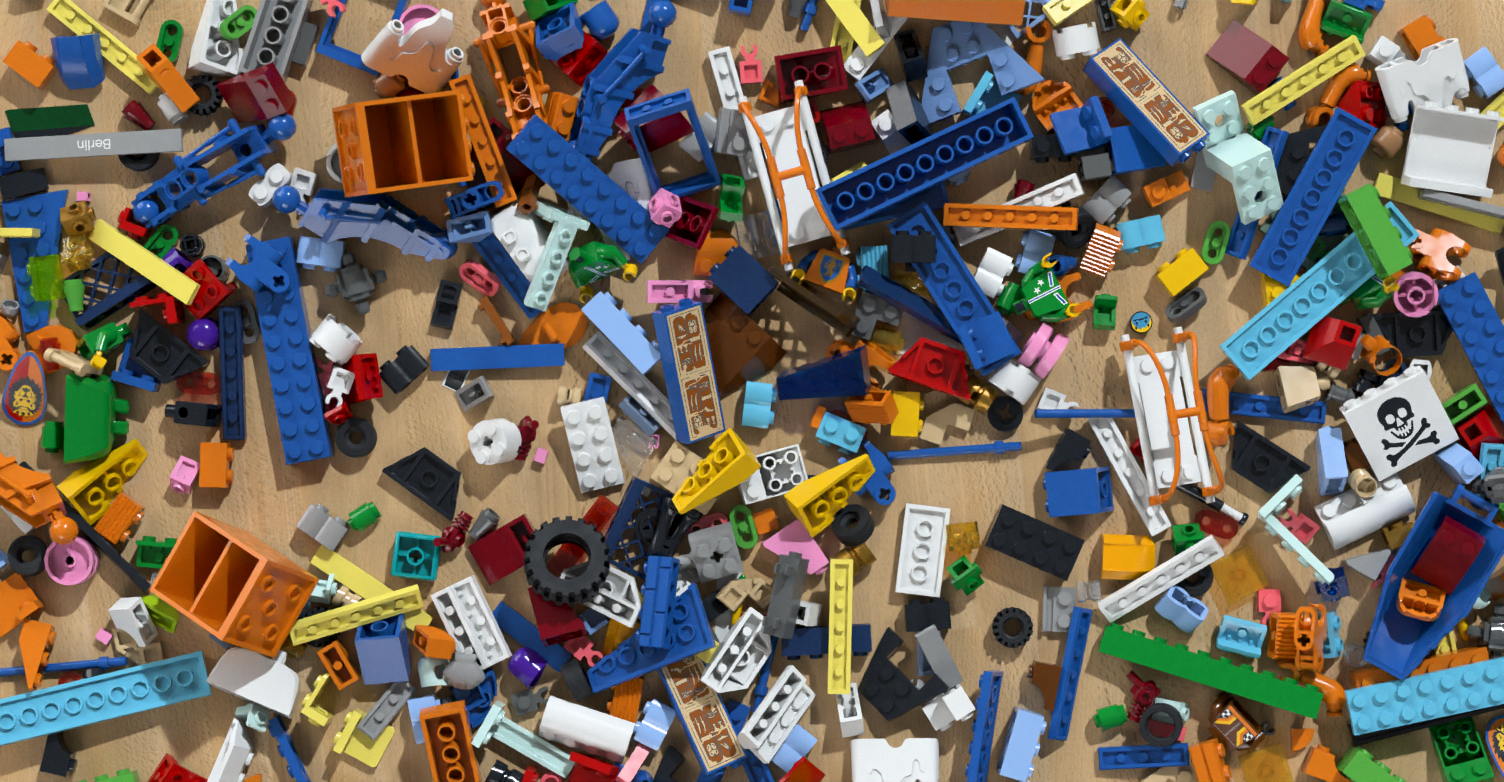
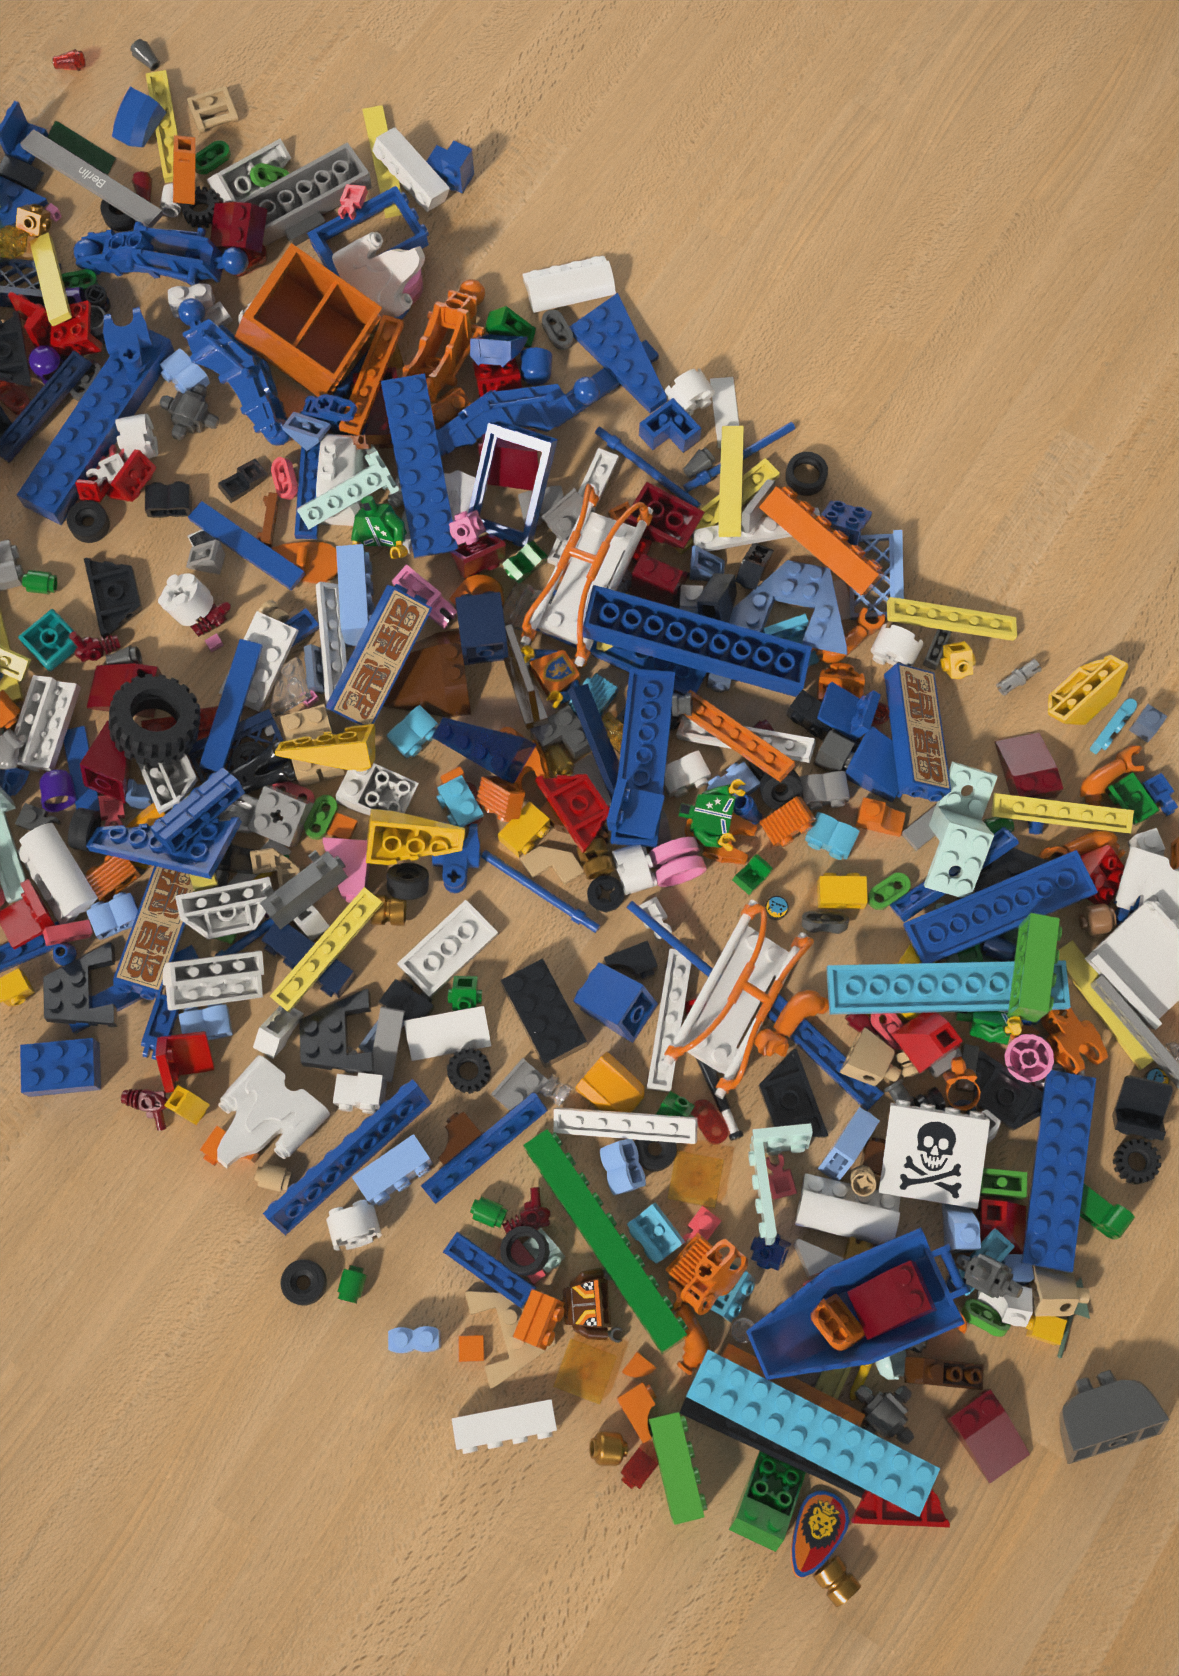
camera: 30 degrees right, 15 degrees down
(30, 64) = (99, 98): orange brick -> none
(134, 230) = (66, 251): red bracket -> none
(606, 499) = (231, 706): none -> blue tile
(715, 35) = (615, 444): none -> blue bar
(750, 68) = (622, 485): coral plate -> none
(913, 248) = (635, 697): black brick -> none
(951, 223) = (682, 704): none -> dark grey wheel
(963, 537) = (489, 962): clear yellow brick -> none
(975, 613) = (447, 1033): none -> white sticker
(1008, 296) = (674, 804): green brick -> none

